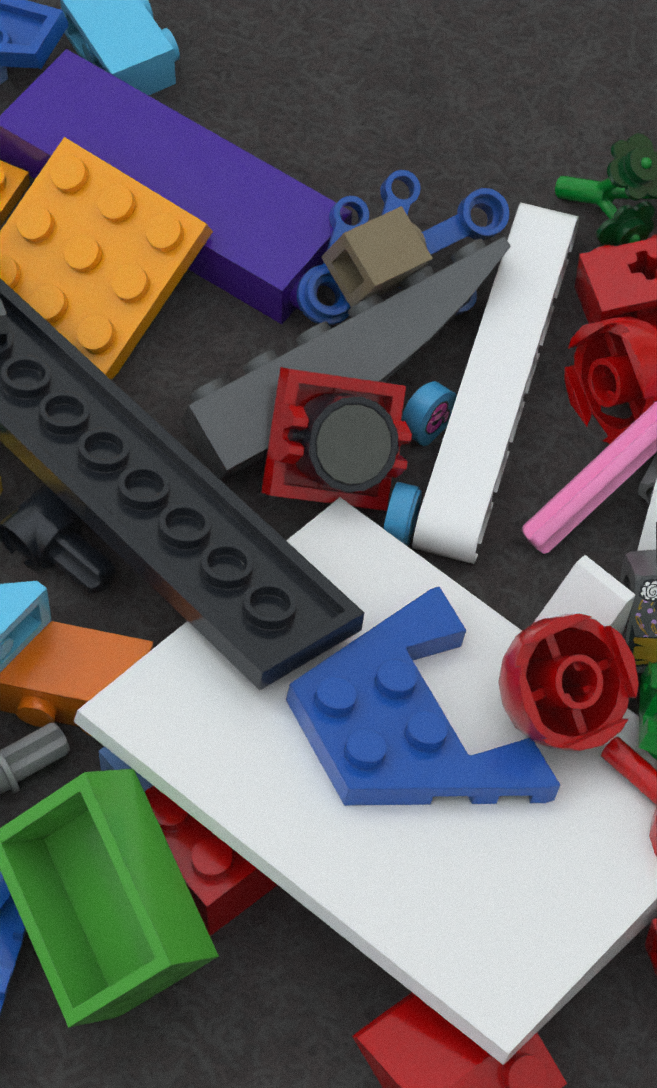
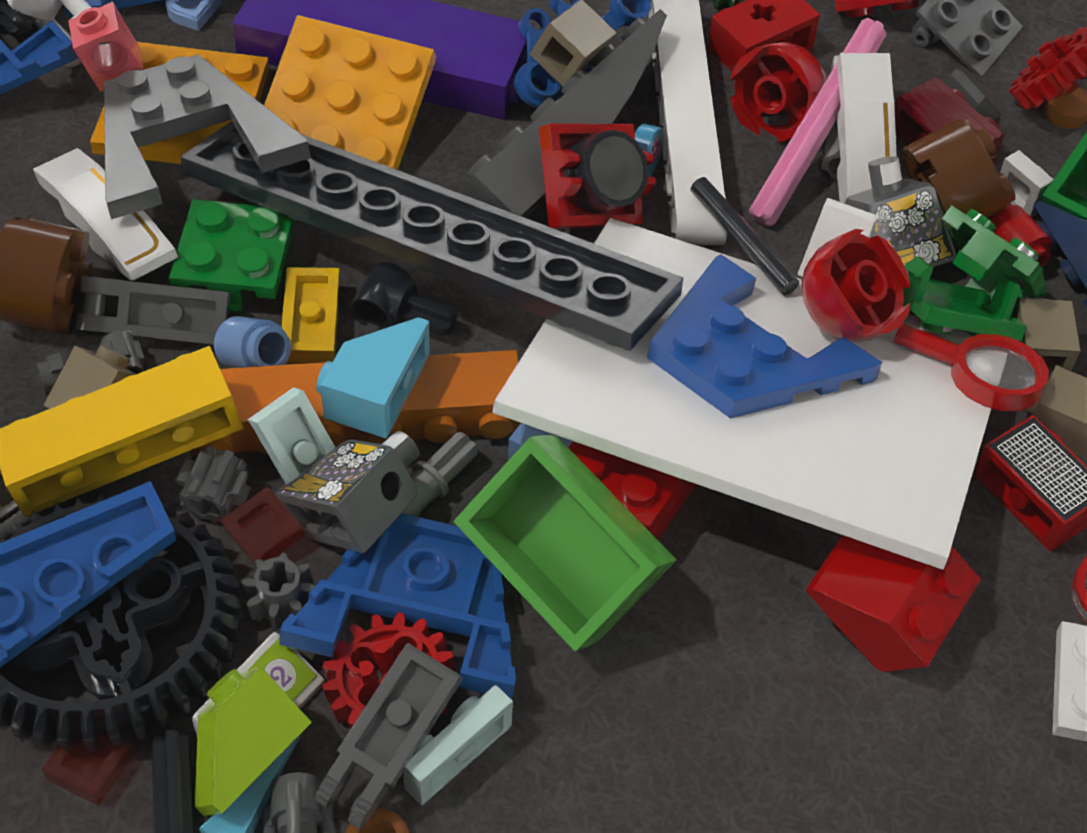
camera: 20 degrees left, 5 degrees down
(403, 511) = (659, 215): dark azure tile -> none
(481, 564) = (744, 236): none -> black bar

